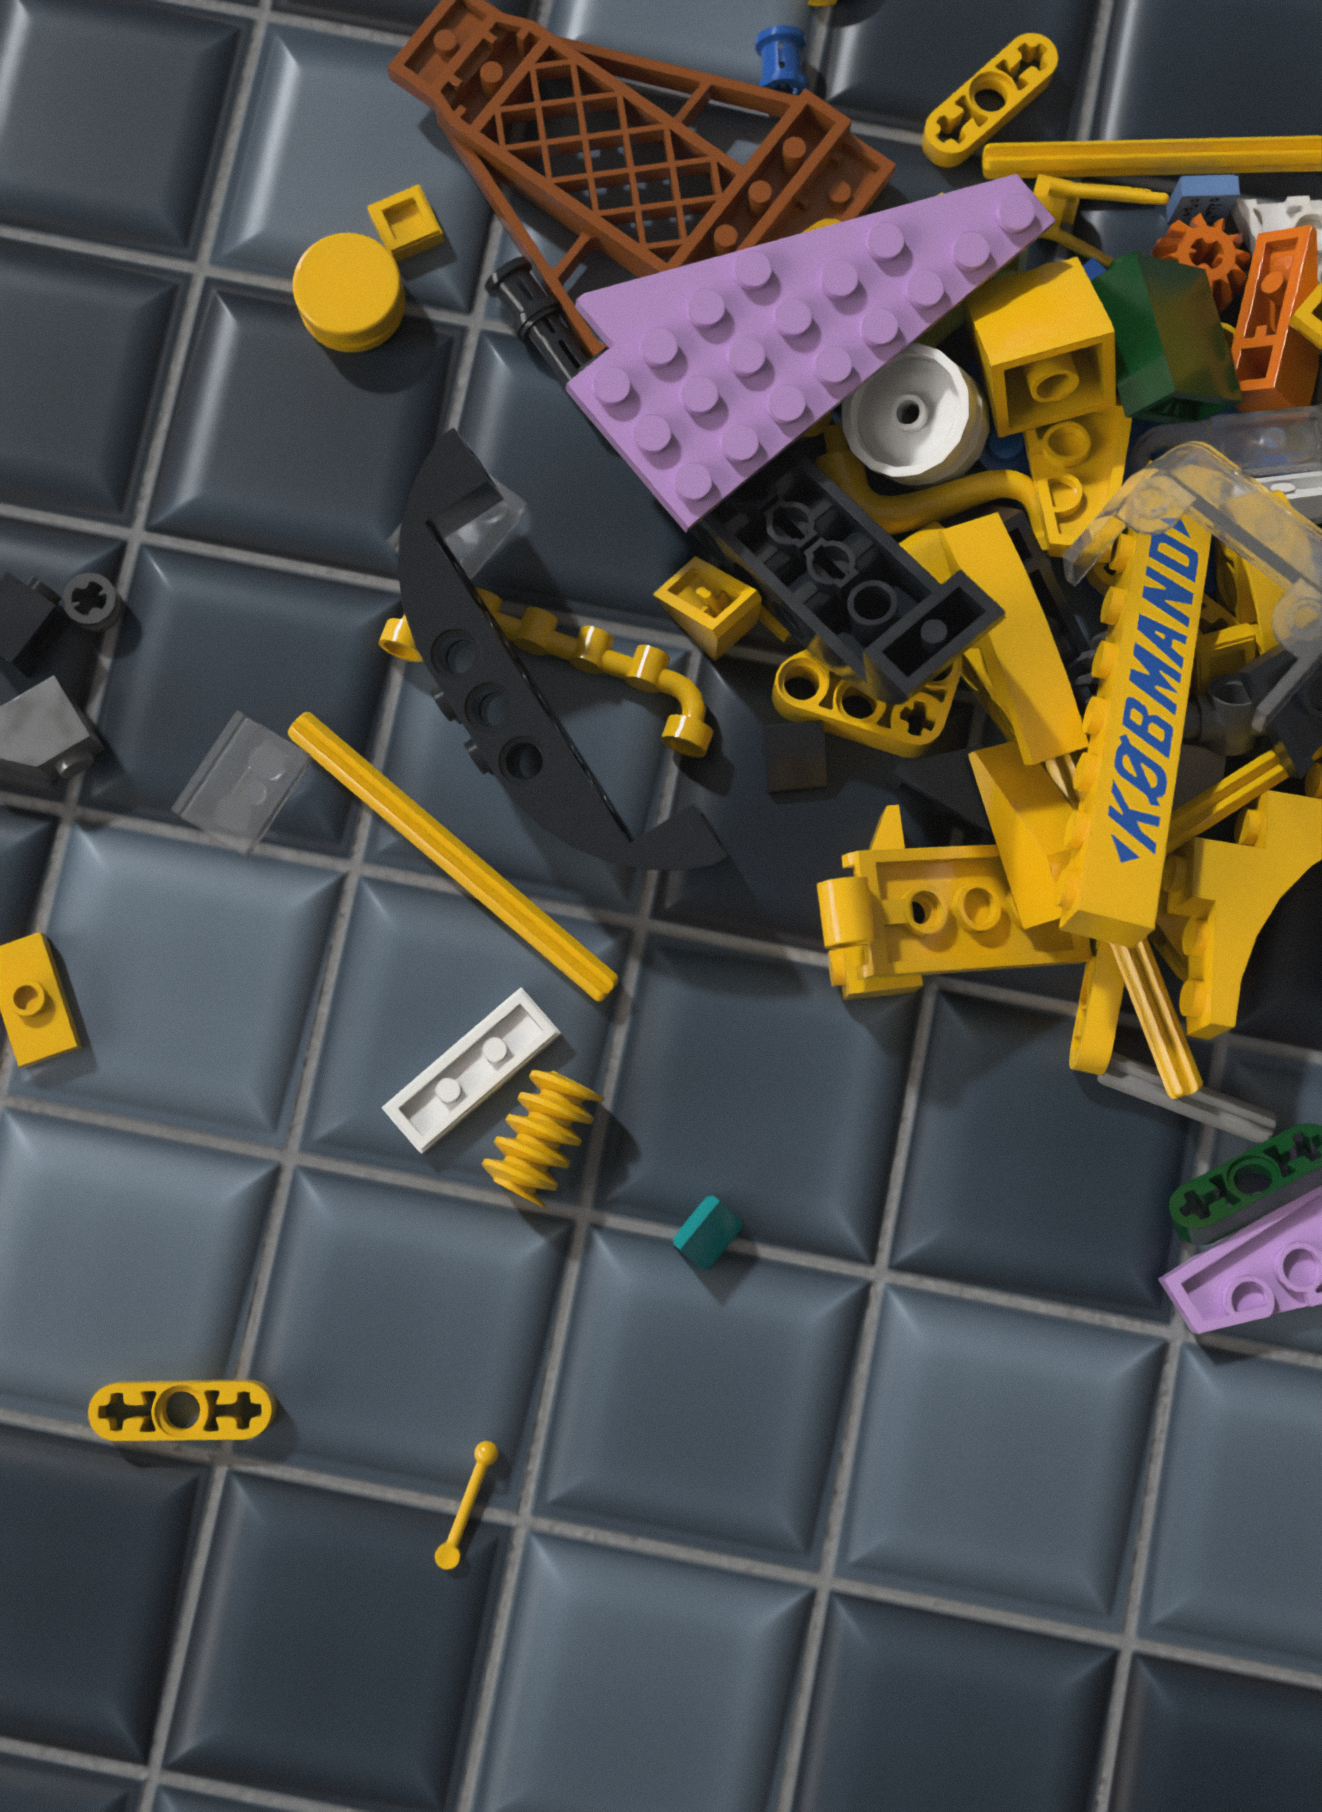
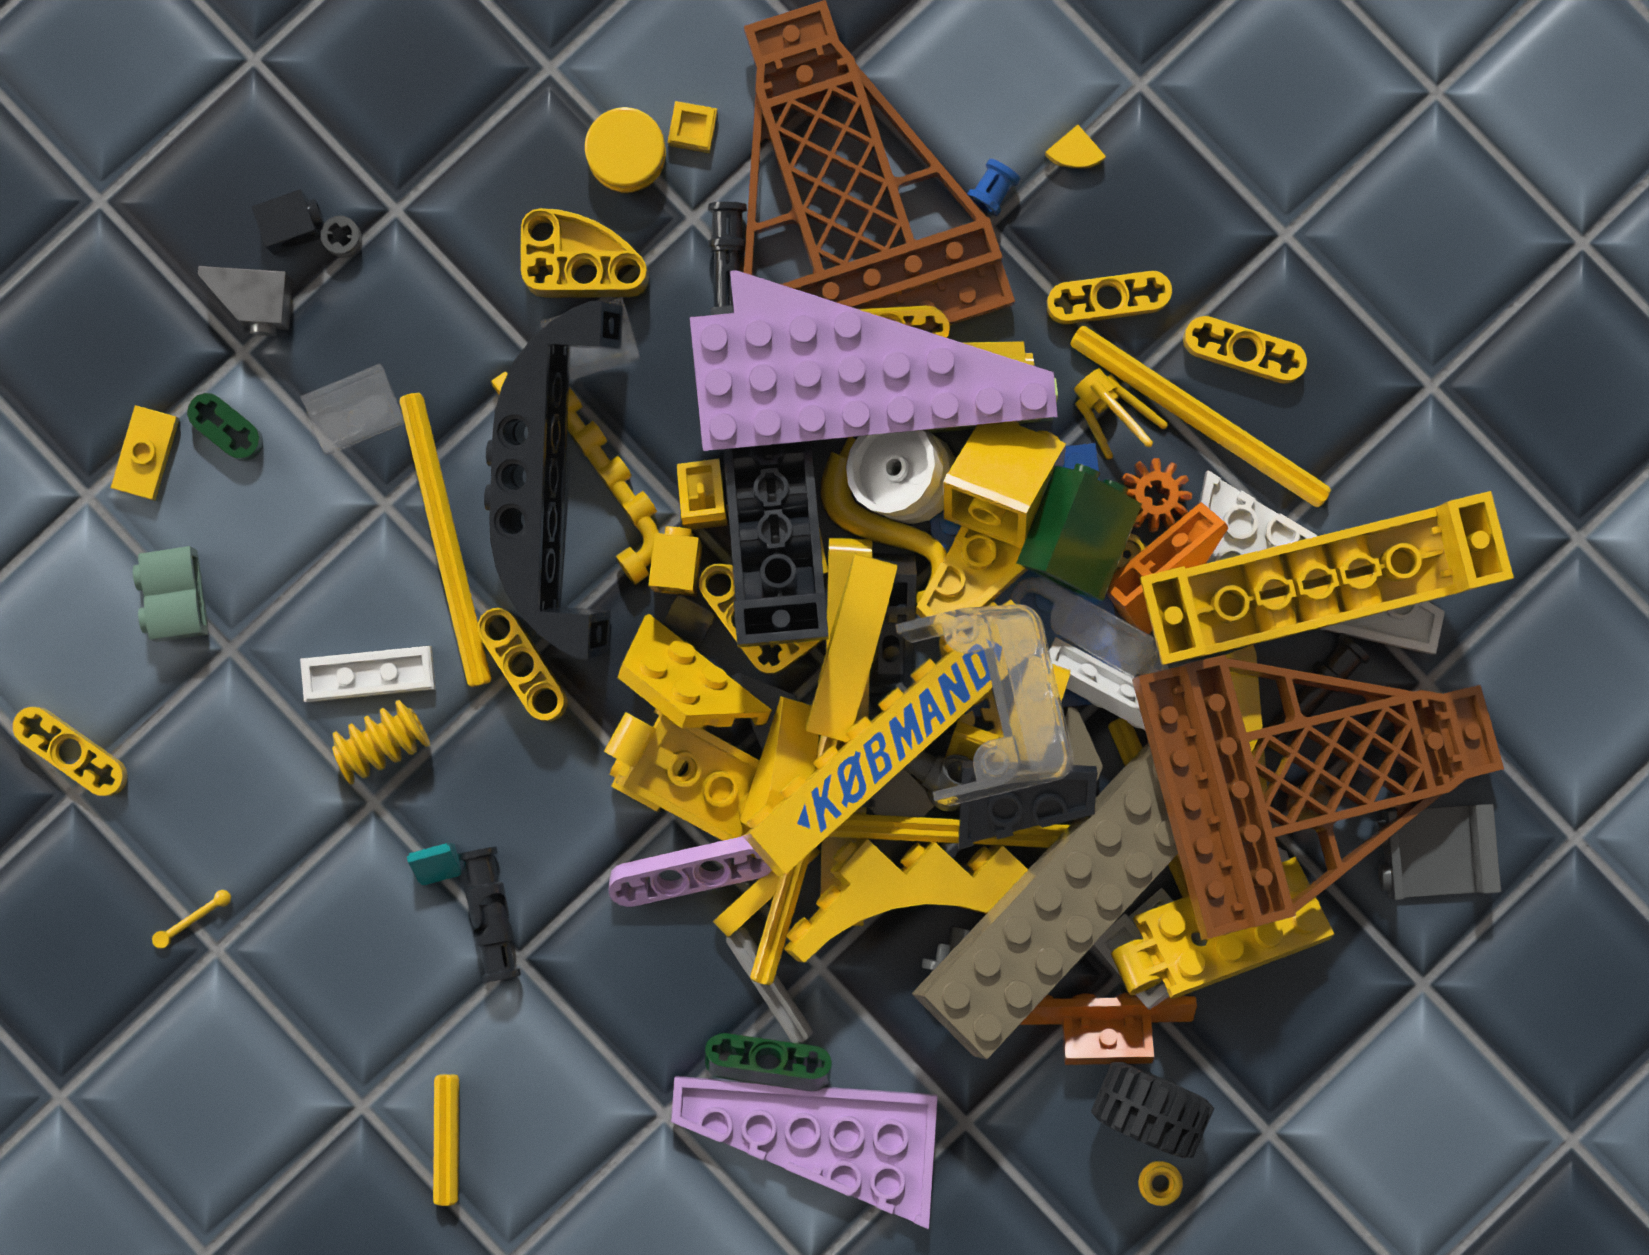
camera: 40 degrees right, 5 degrees up
(107, 891) = (219, 434): none -> dark green beam
(176, 1139) = (171, 594): none -> sand green brick
(366, 428) = (573, 244): none -> yellow beam
(625, 908) = (504, 653): none -> yellow beam
(739, 690) = (675, 562): none -> yellow brick
(821, 1253) = (491, 922): none -> black piece
(851, 814) = (685, 682): none -> yellow wing
(953, 1548) = (446, 1139): none -> yellow axle
(1015, 1032) = (687, 863): none -> lavender beam
(1191, 39) = (1271, 370): none -> yellow beam
(1206, 194) = (1189, 454): medium blue tile -> none

